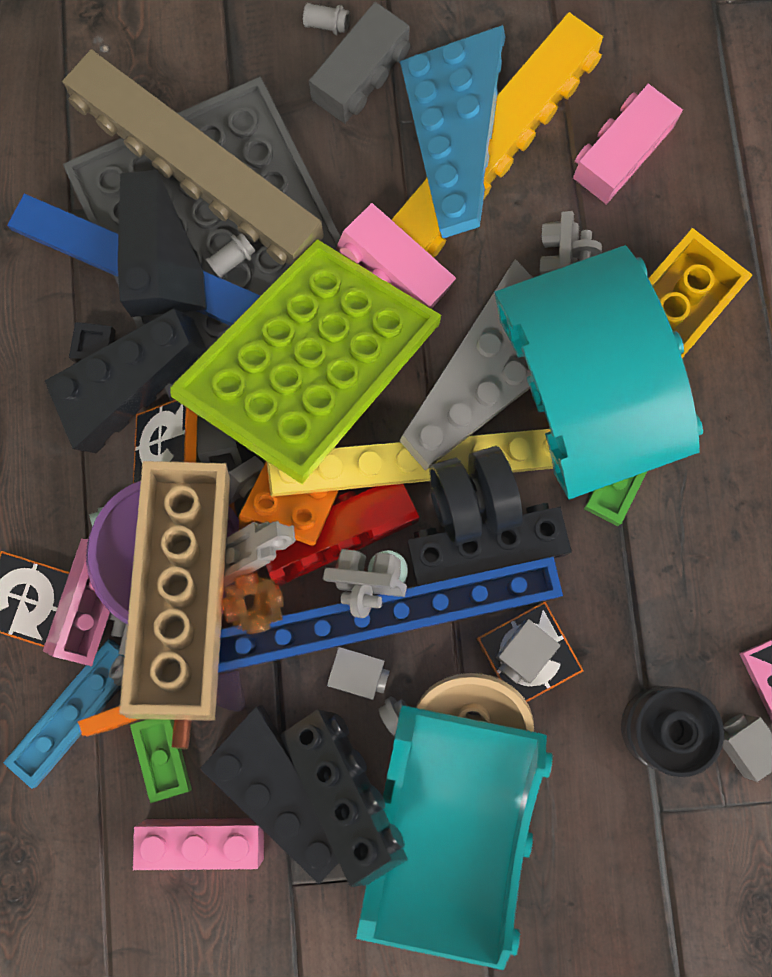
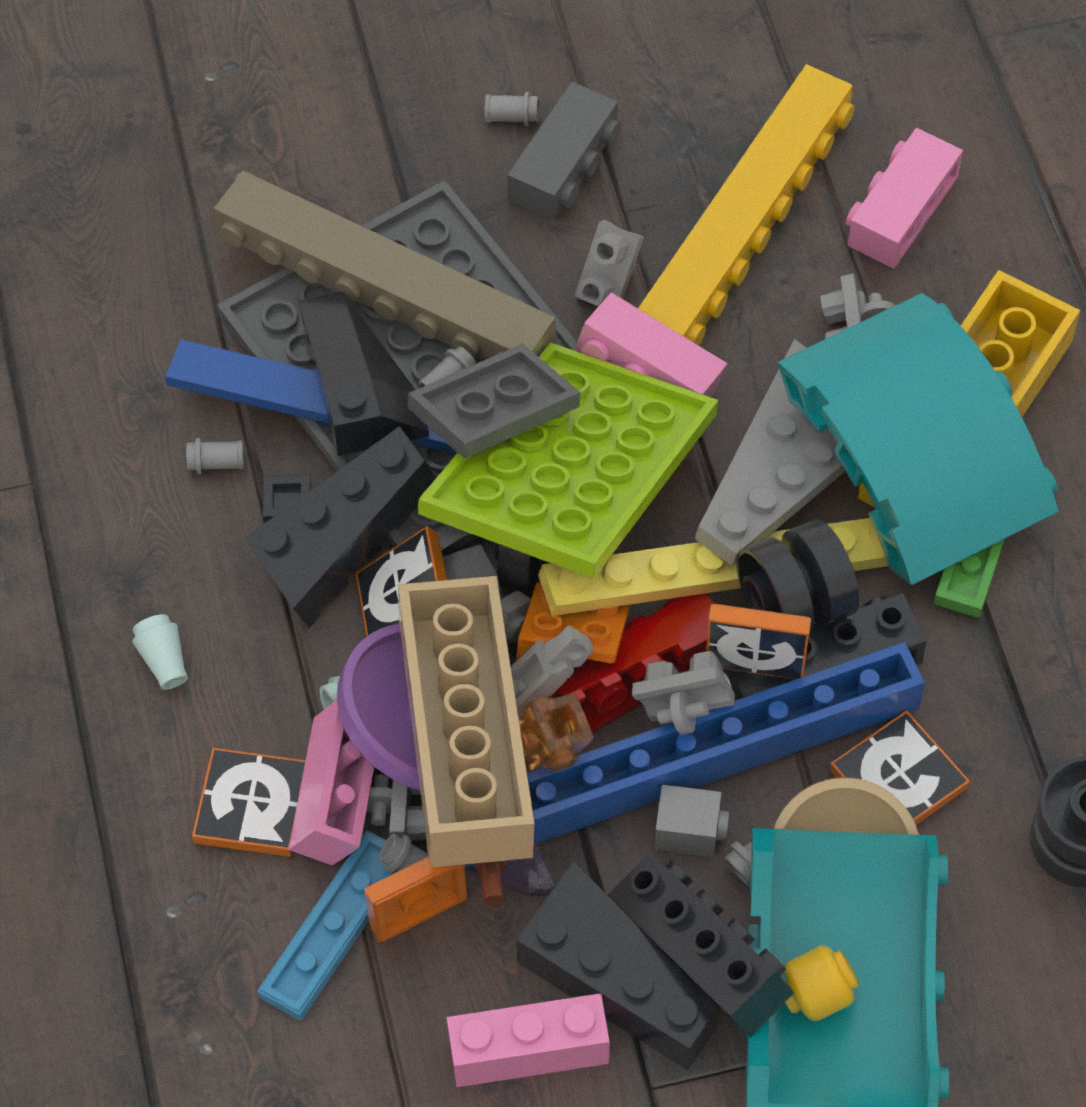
camera: 10 degrees left, 20 degrees down
(41, 295) = (214, 455): none -> light grey pin
(160, 764) = (458, 954): bright green plate -> none
(252, 298) = (493, 400): none -> dark grey plate
(376, 174) = (608, 263): none -> light grey hips
(431, 551) = (758, 640): none -> tile
(433, 836) = (820, 983): none -> yellow head
(454, 114) = (691, 191): dark azure wing -> none
(526, 652) = (895, 756): light grey brick -> none

